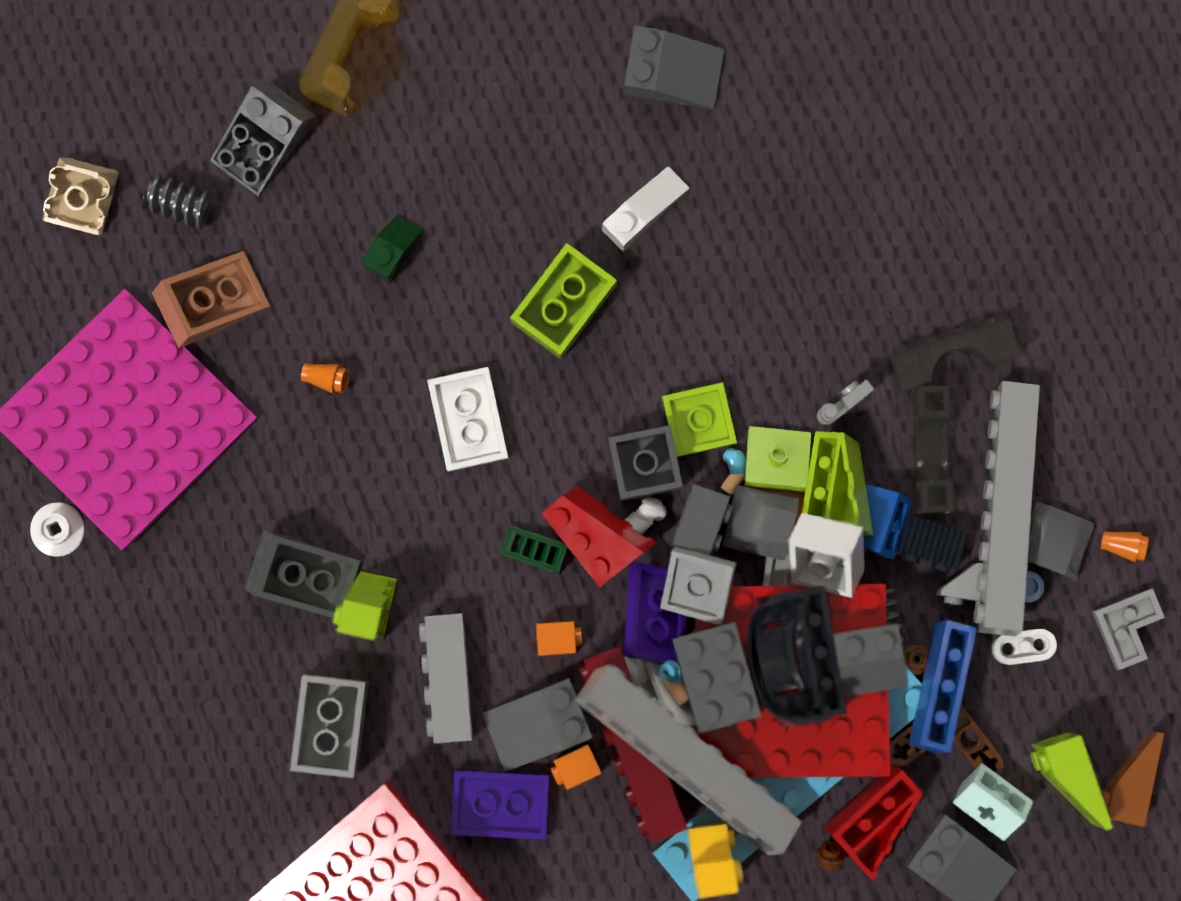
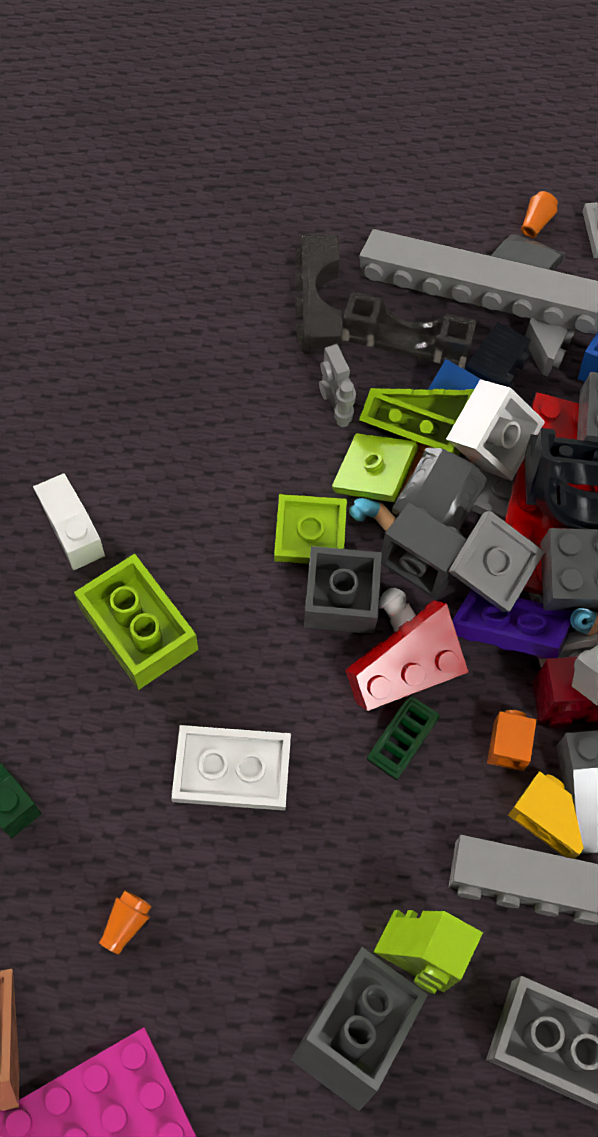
camera: 75 degrees left, 20 degrees down
(504, 681) = (549, 815): none -> yellow slope

